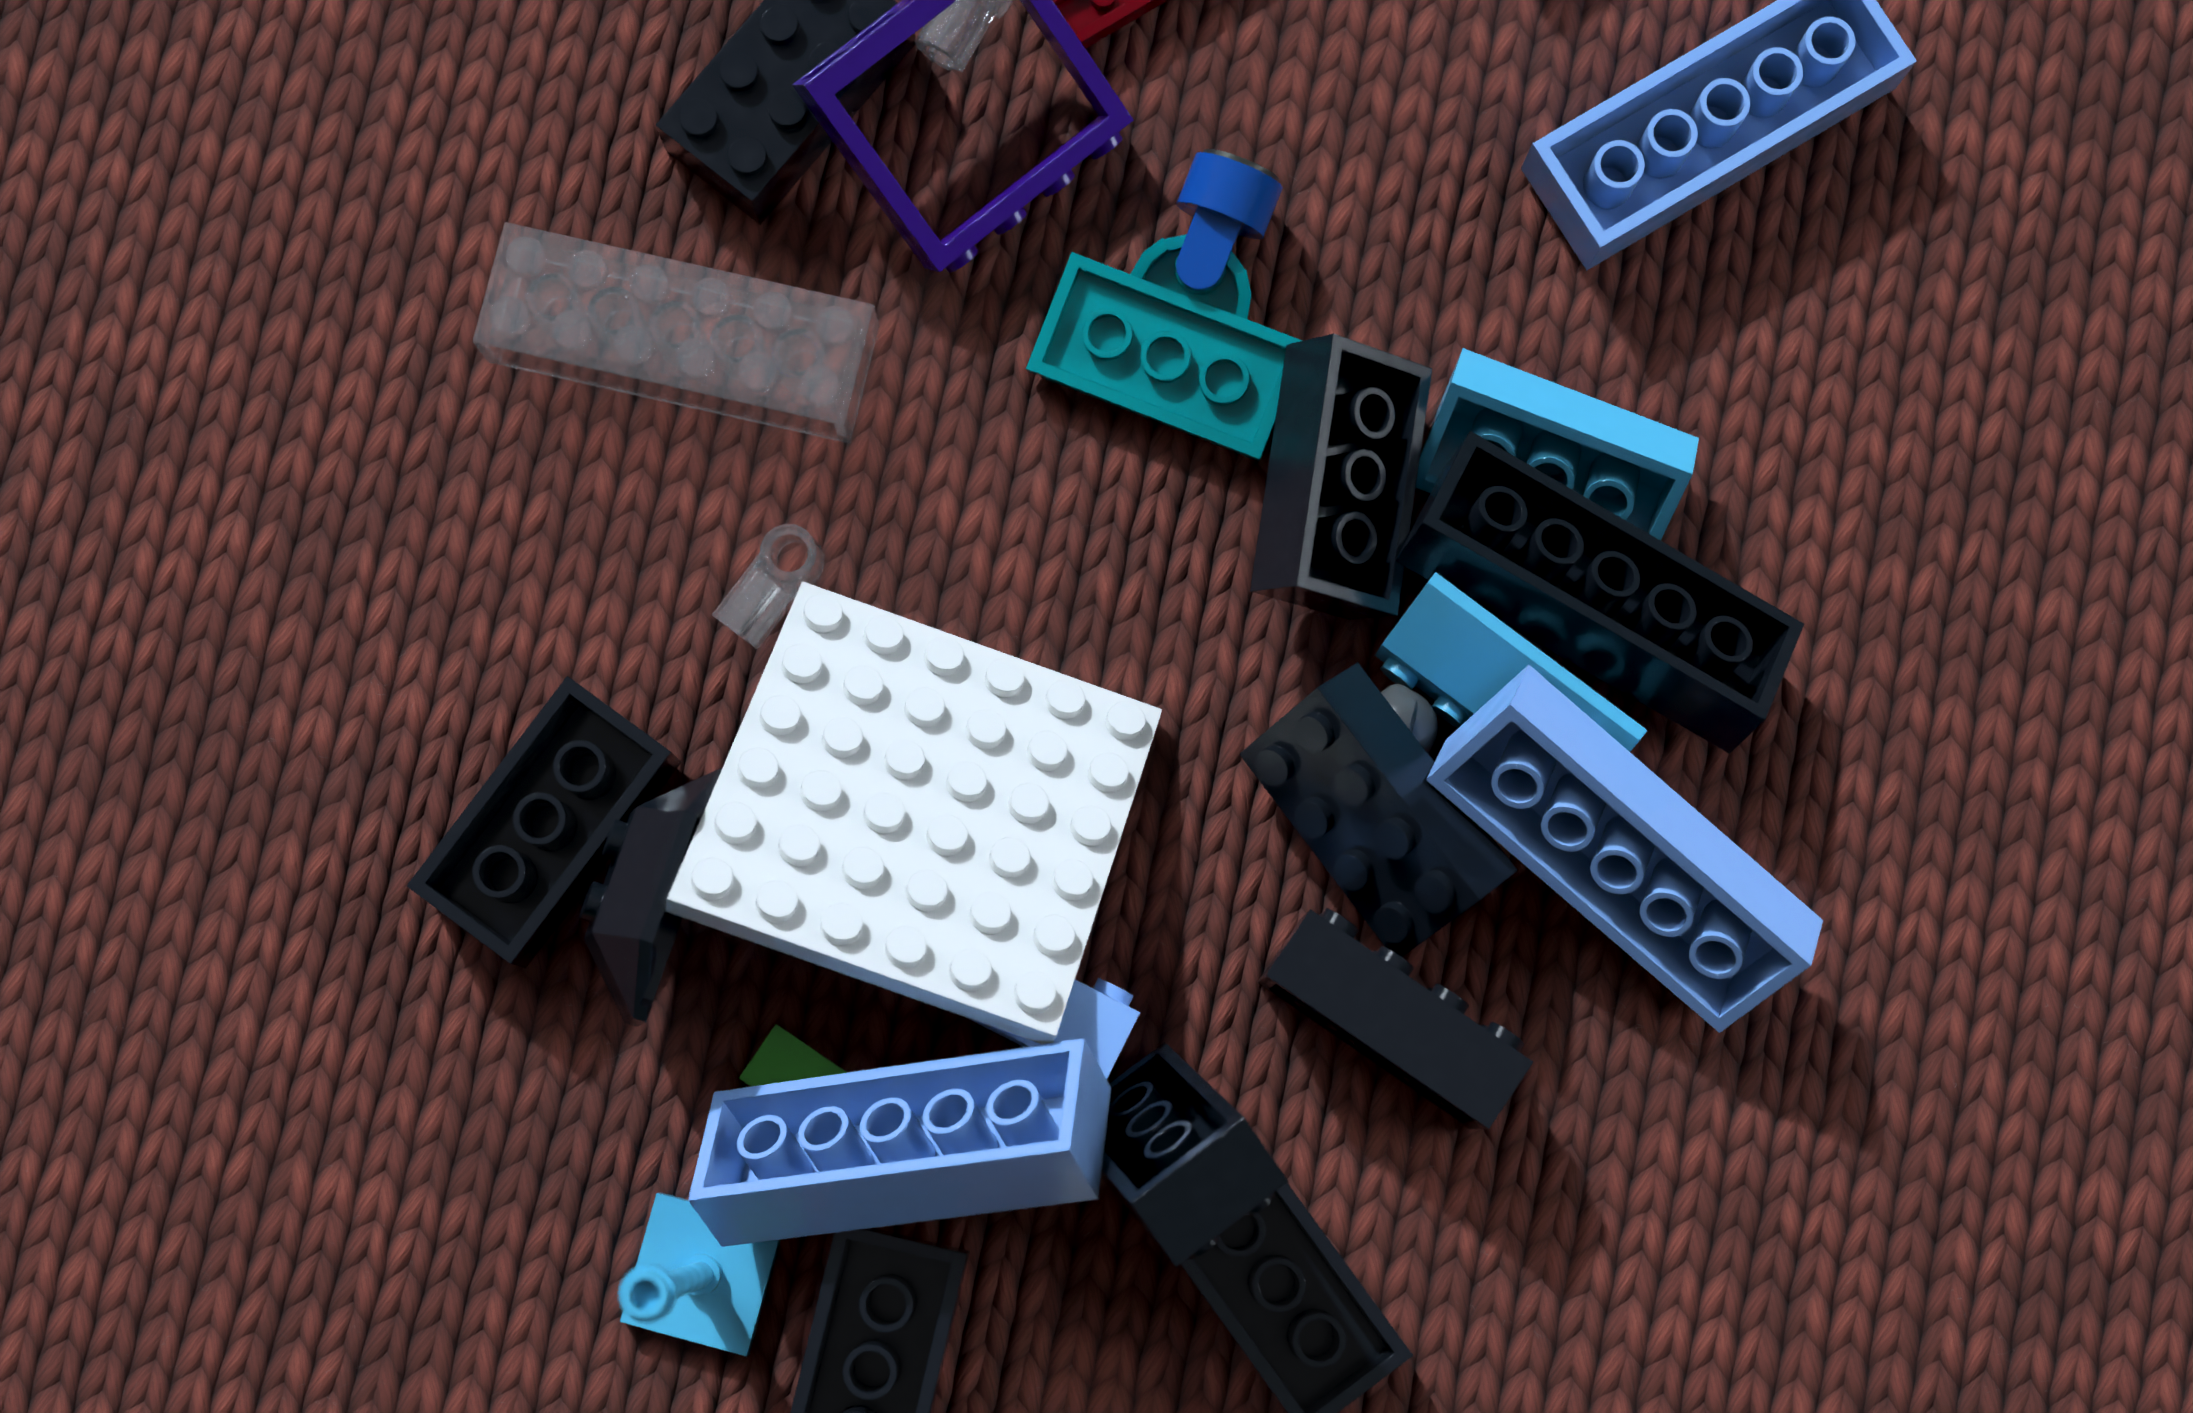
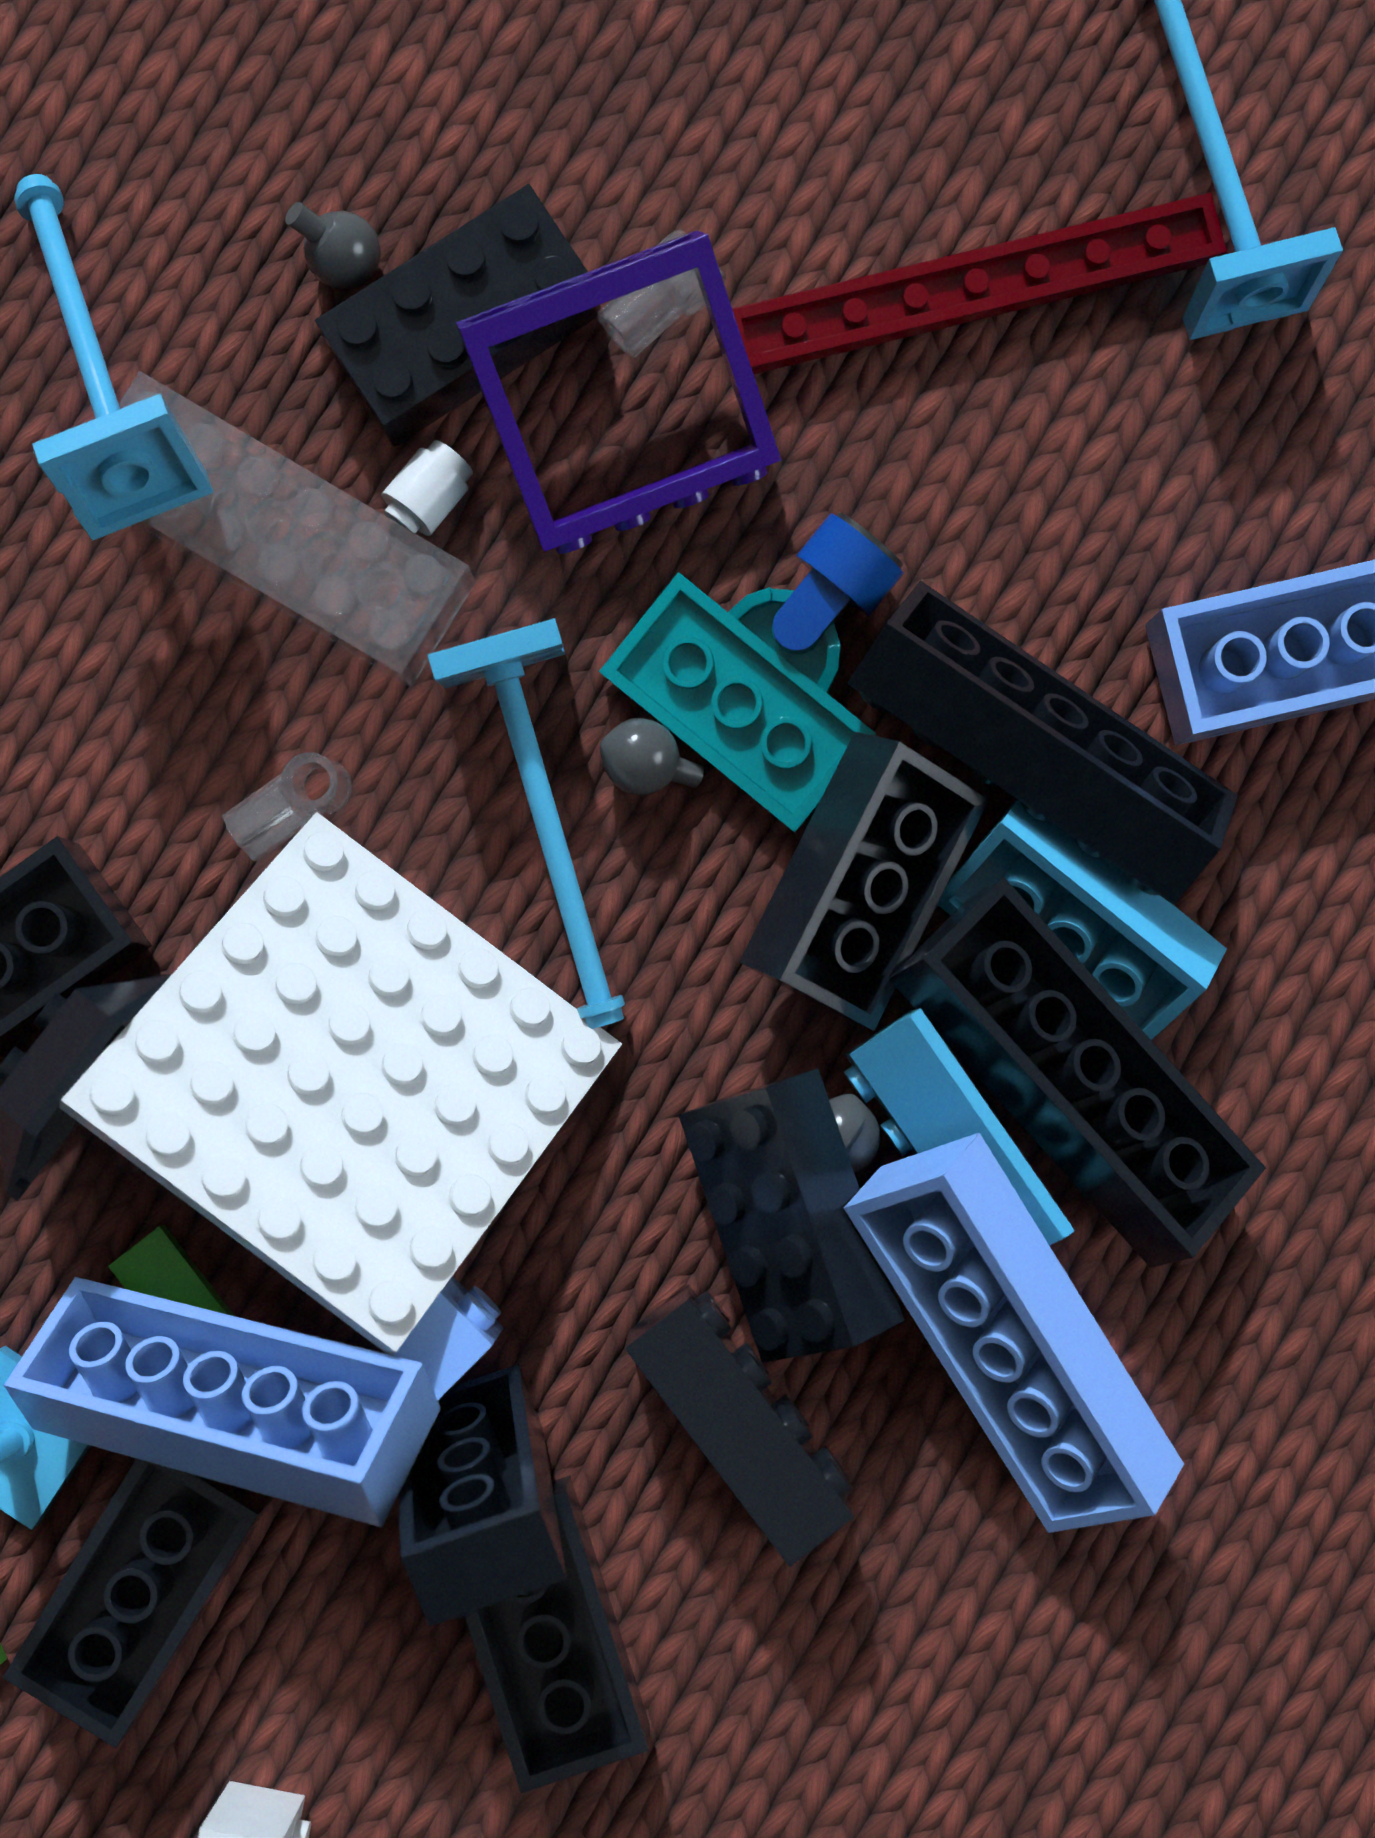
camera: 20 degrees right, 5 degrees up
(525, 303) = (127, 458): none -> medium azure tile
(650, 54) = (337, 246): none -> dark grey piece
(808, 248) = (427, 488): none -> white brick
(933, 385) = (501, 664): none -> medium azure tile
(1096, 434) = (644, 758): none -> dark grey piece
(1467, 300) = (1046, 743): none -> black brick

